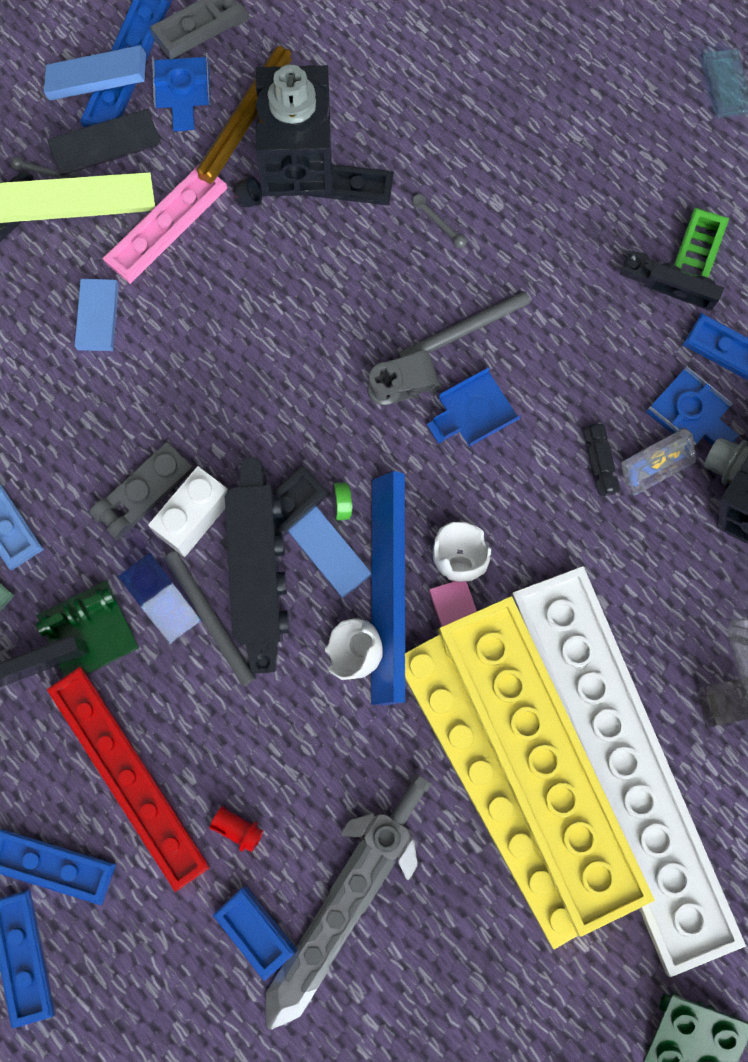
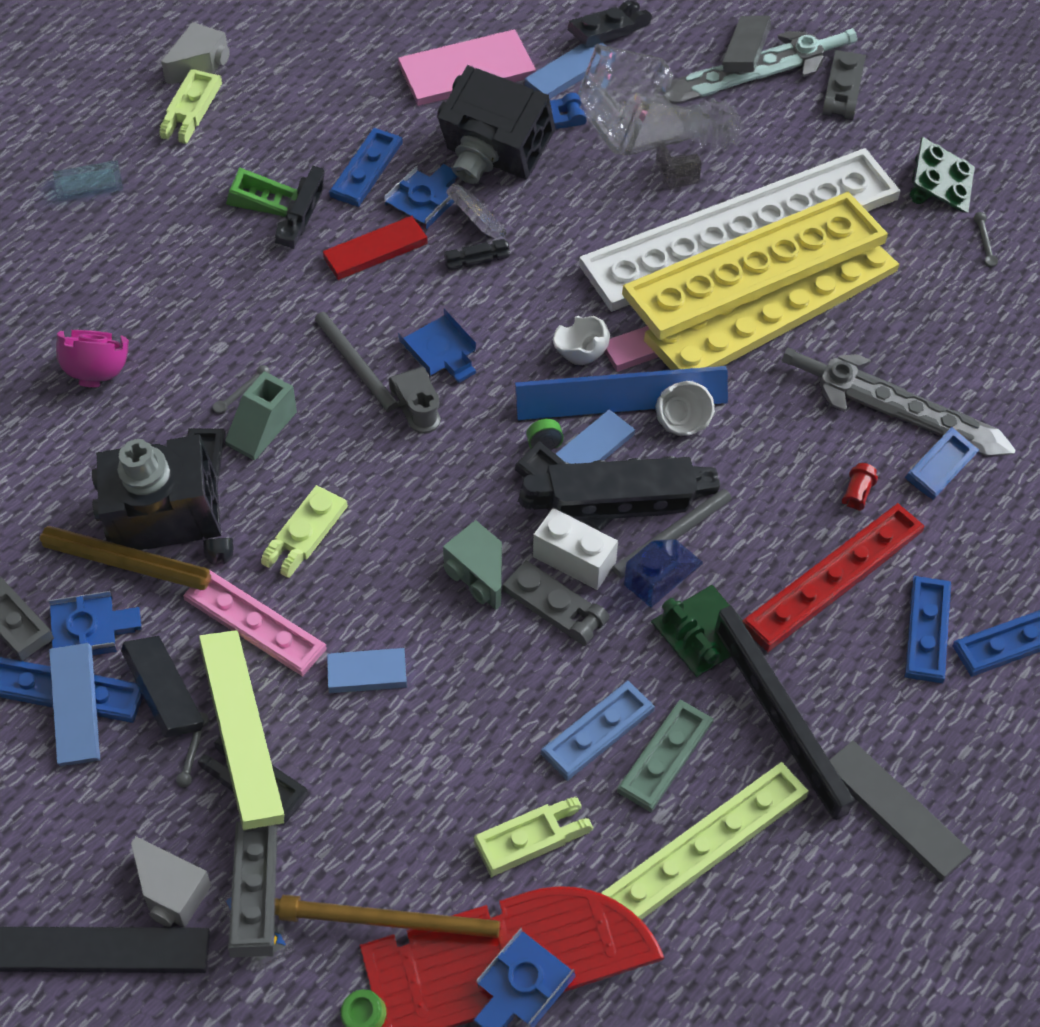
camera: 95 degrees left, 20 degrees down
(190, 421) = (477, 561): none -> sand green slope
(261, 270) = (305, 529): none -> yellowish green hinge
(392, 230) = (261, 415): none -> sand green slope
(481, 77) = (91, 356): none -> dark pink cylinder
(619, 356) = (375, 247): none -> red tile

